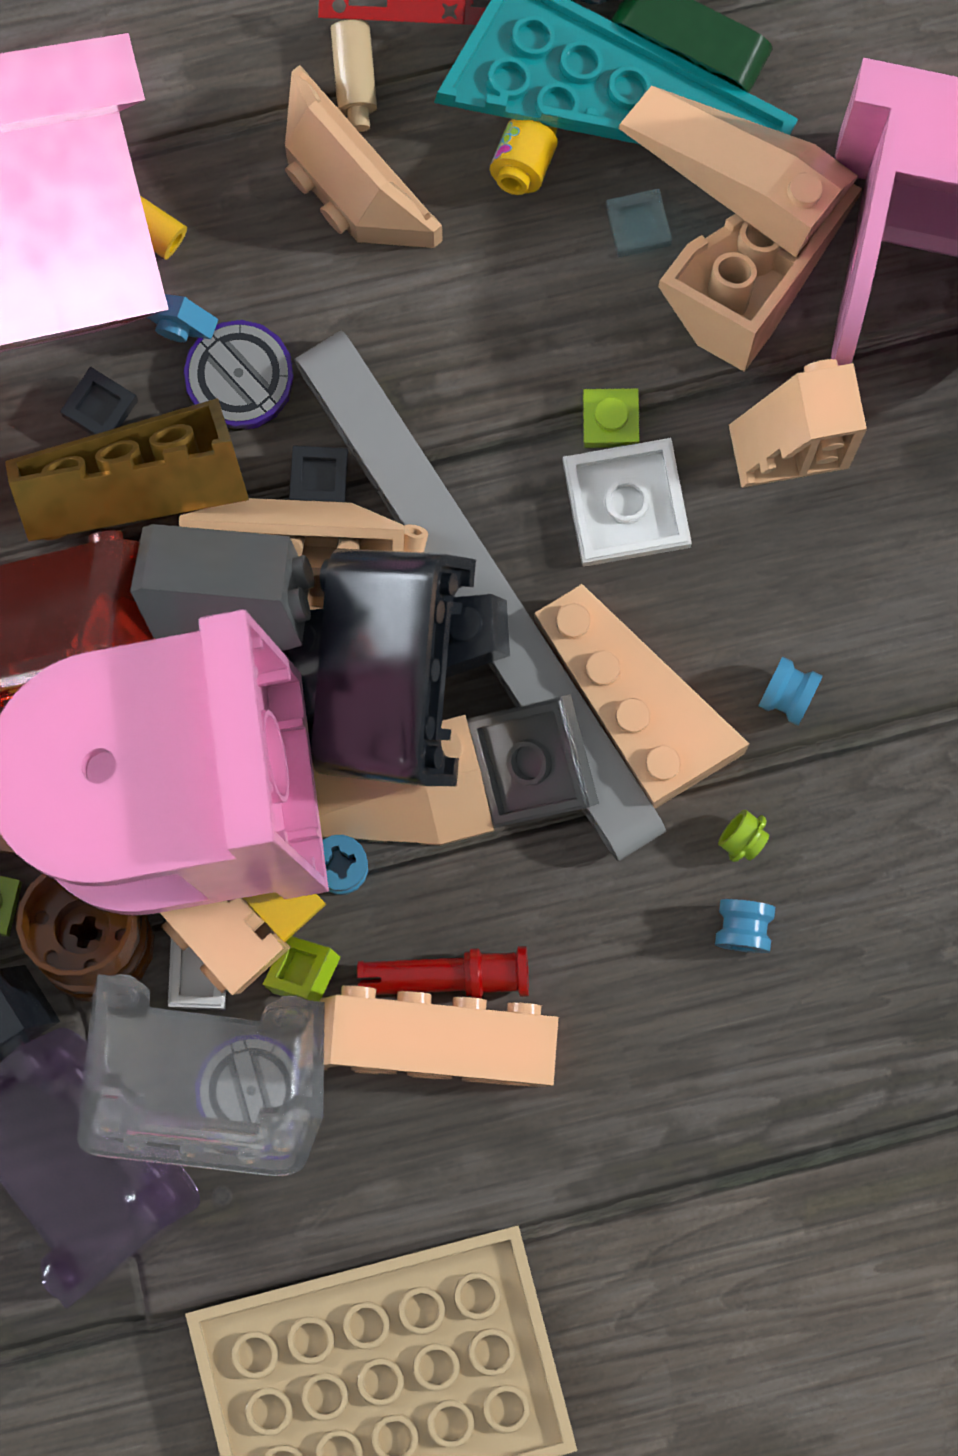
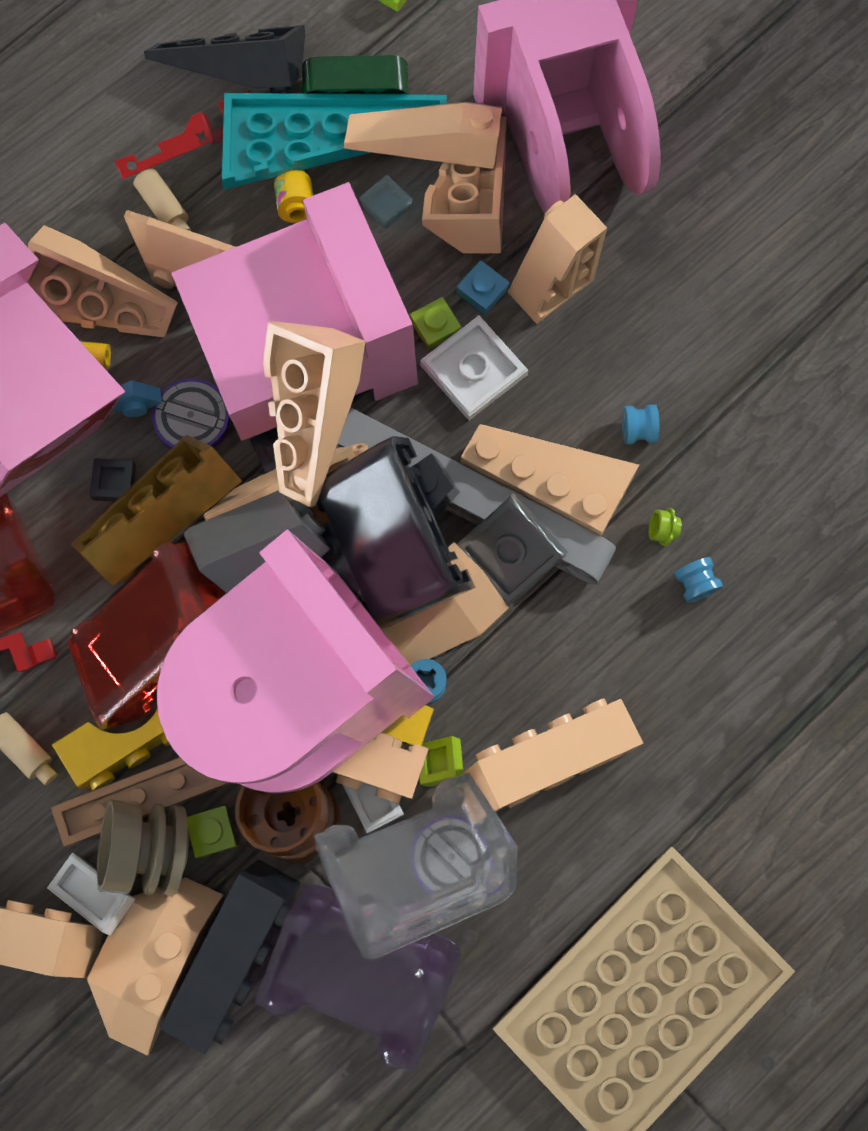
camera: 30 degrees left, 5 degrees down
(204, 142) = (93, 289): none -> light nougat wedge
(385, 443) = (312, 388): none -> light nougat wedge
(424, 333) = (305, 275): none -> bright pink piece
(474, 974) = (549, 702): red pin -> none
(698, 403) = (482, 287): none -> dark azure plate

